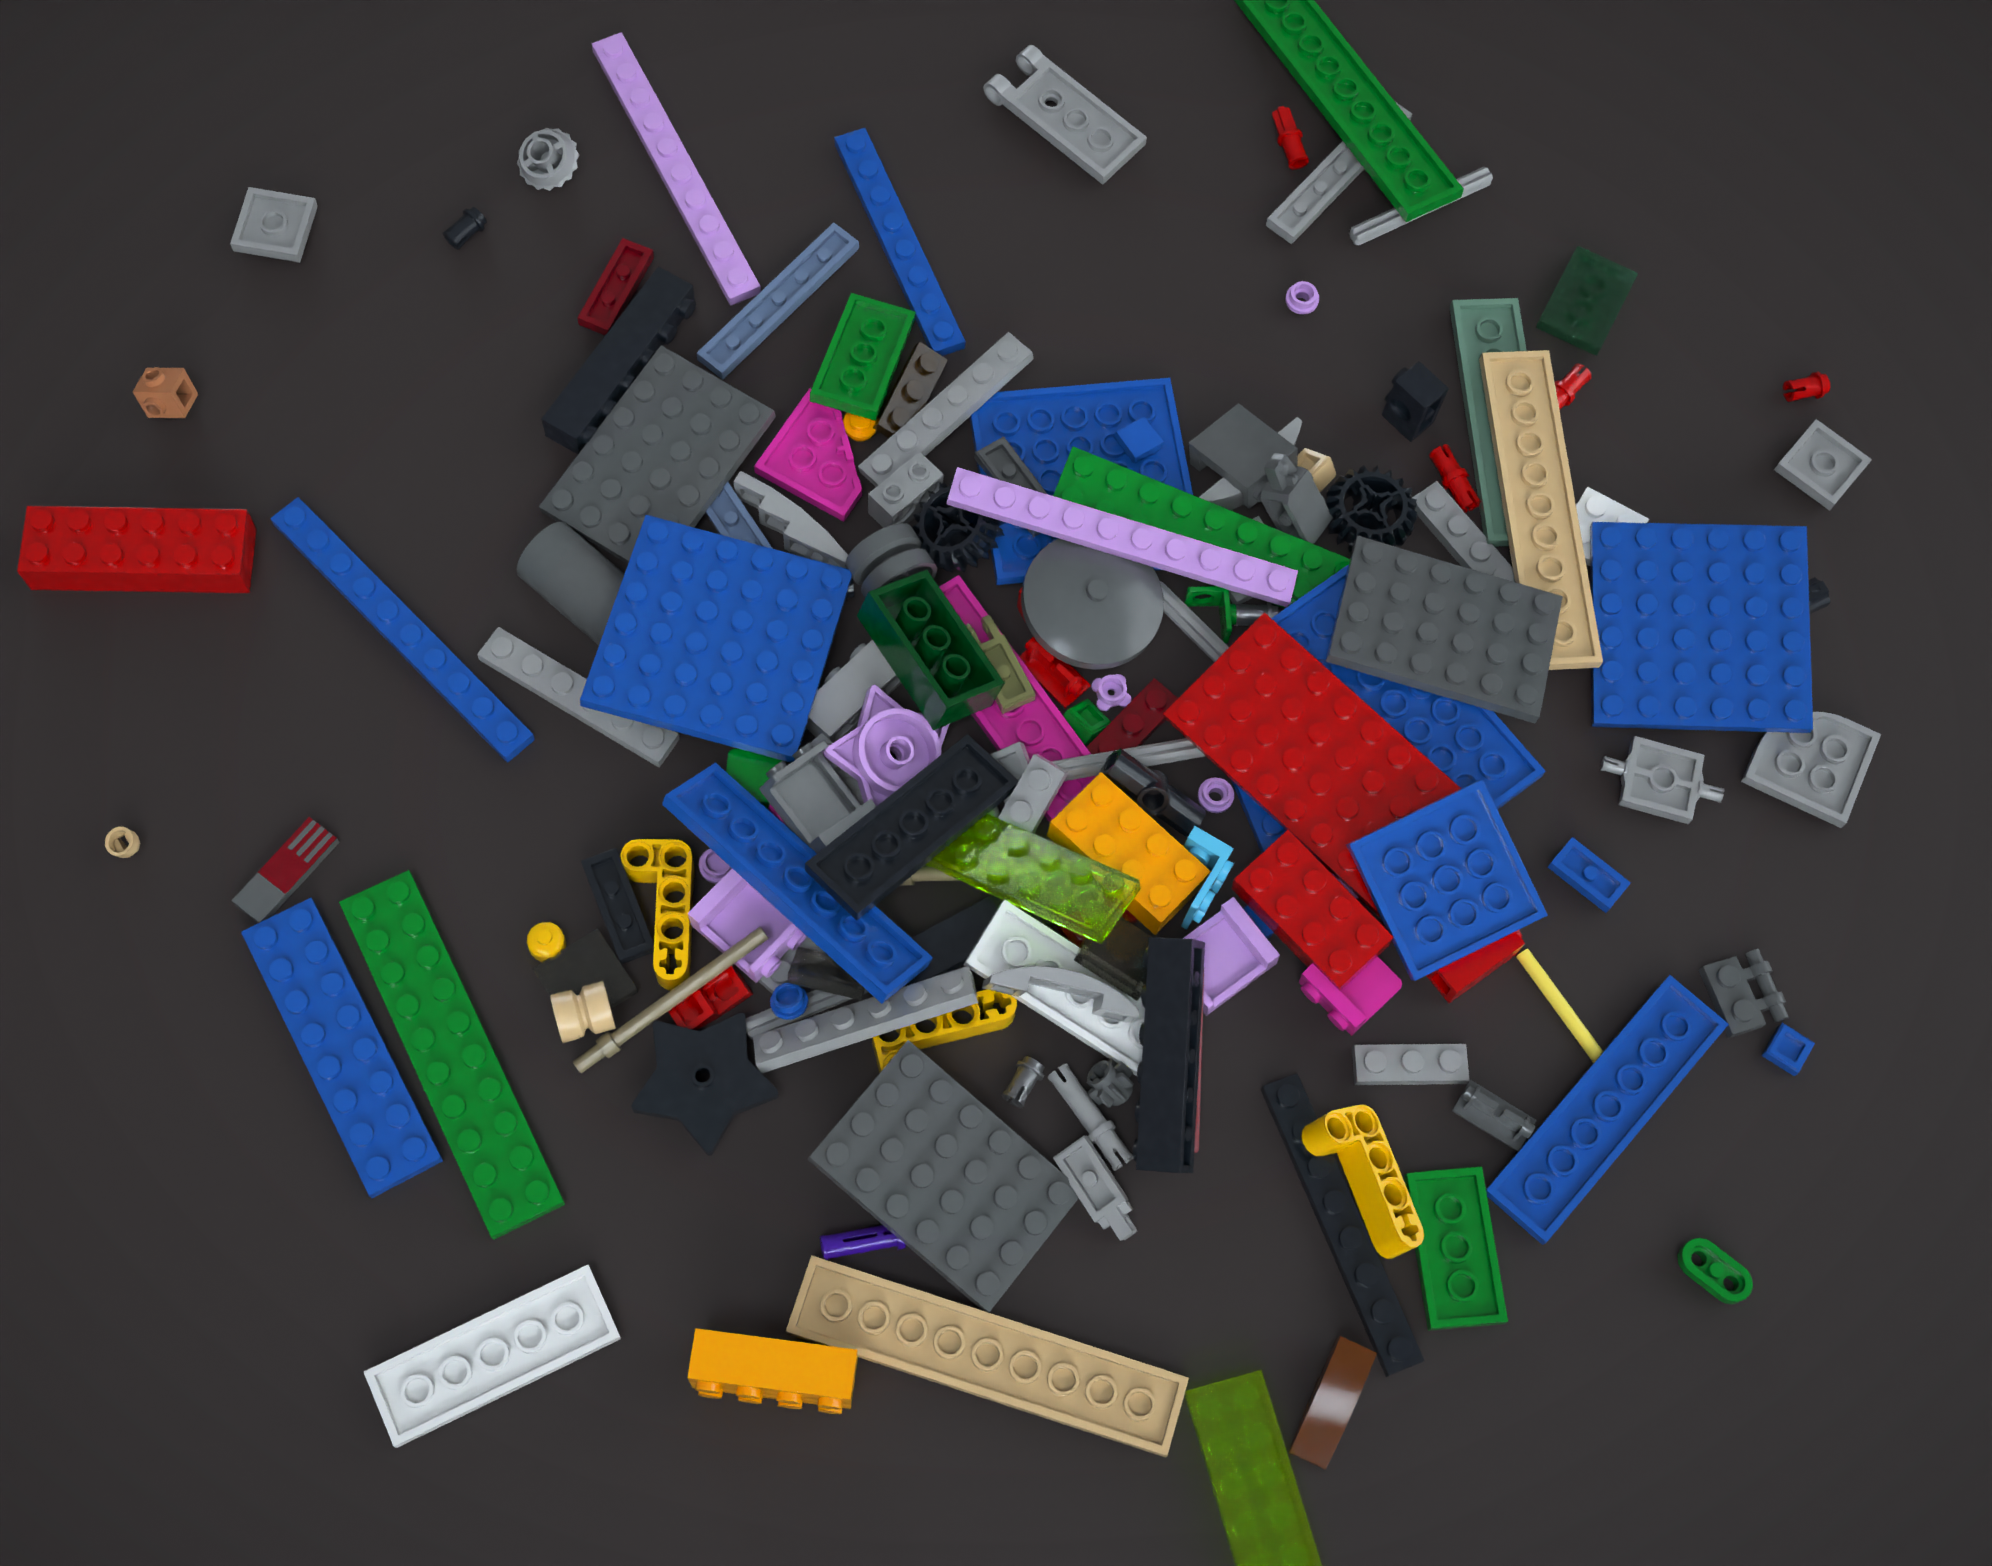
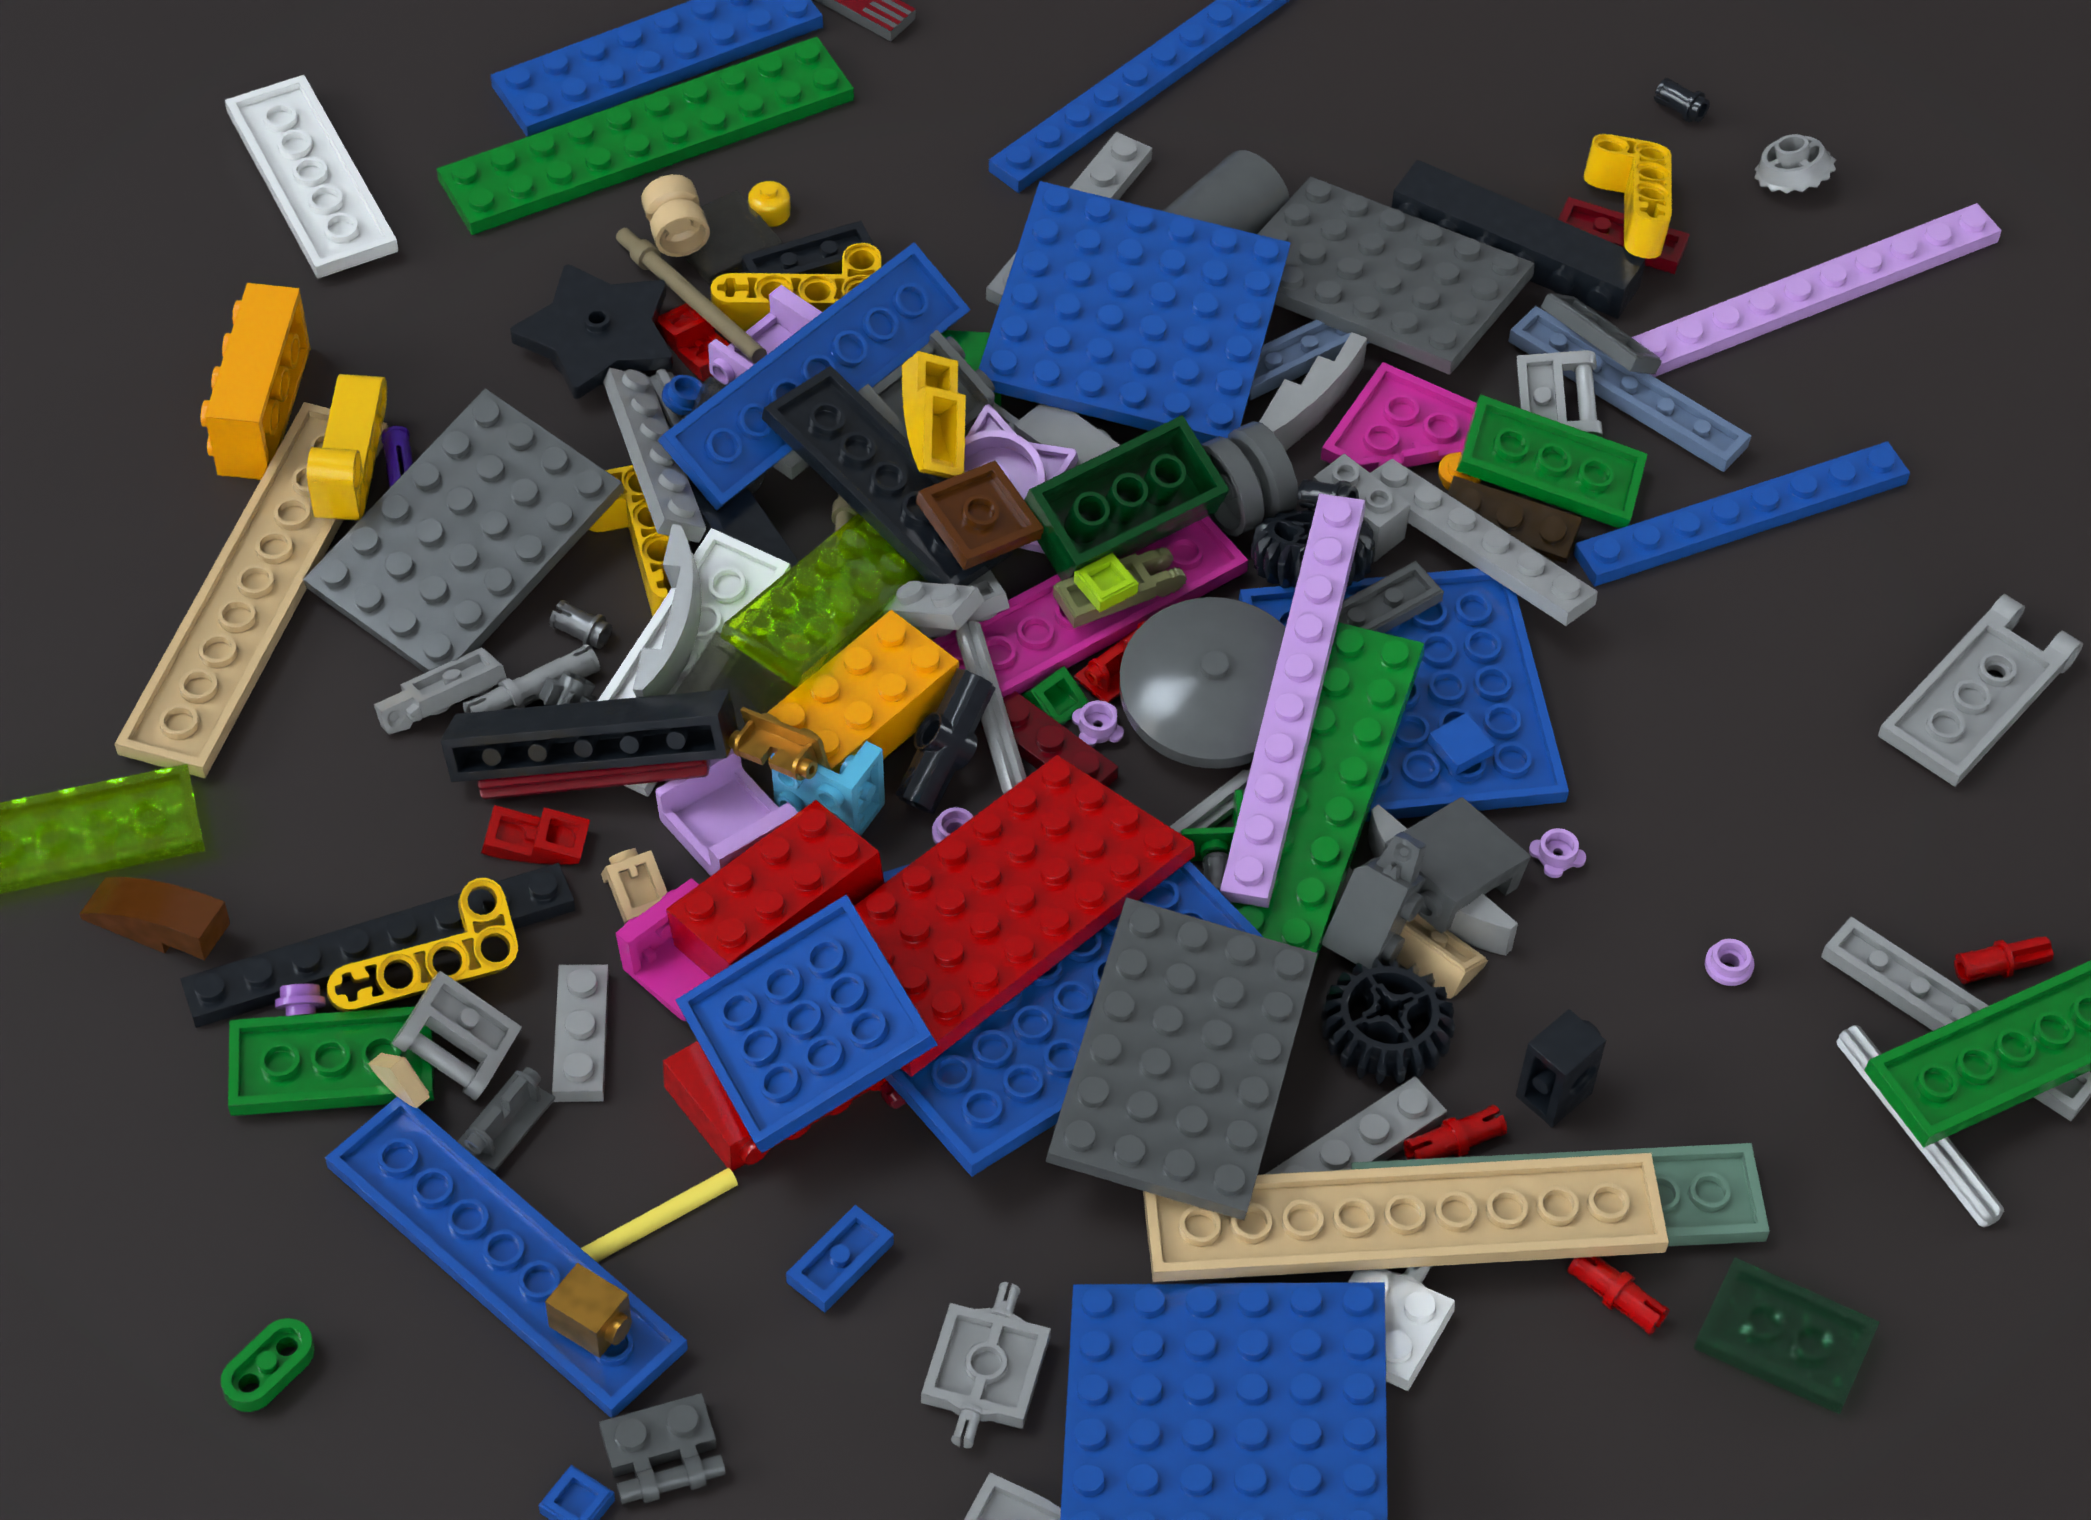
camera: 95 degrees right, 15 degrees down
(586, 257) = (1645, 177): none -> yellow beam
(729, 309) = (1601, 333): none -> dark grey tile
(792, 355) = (1543, 387): none -> light grey plate
(853, 784) = (934, 414): none -> yellow slope
(856, 1277) = (344, 466): none -> yellow beam
(917, 505) = (1310, 490): none -> black pin
(955, 753) = (979, 515): none -> reddish brown plate
(1010, 666) = (1106, 582): none -> lime tile
(1207, 887) = (795, 749): none -> pearl gold hinge
(1217, 385) = (1560, 842): none -> lavender plate
(1234, 1107) = (535, 839): none -> red slope
(1280, 1027) = (634, 882): none -> tan bracket
(1406, 1275) = (300, 999): none -> medium lavender plate
(1423, 1148) = (465, 1023): none -> light grey plate
(1484, 1188) = (400, 1078): none -> tan tile
(1670, 1035) = (589, 1310): none -> pearl gold brick

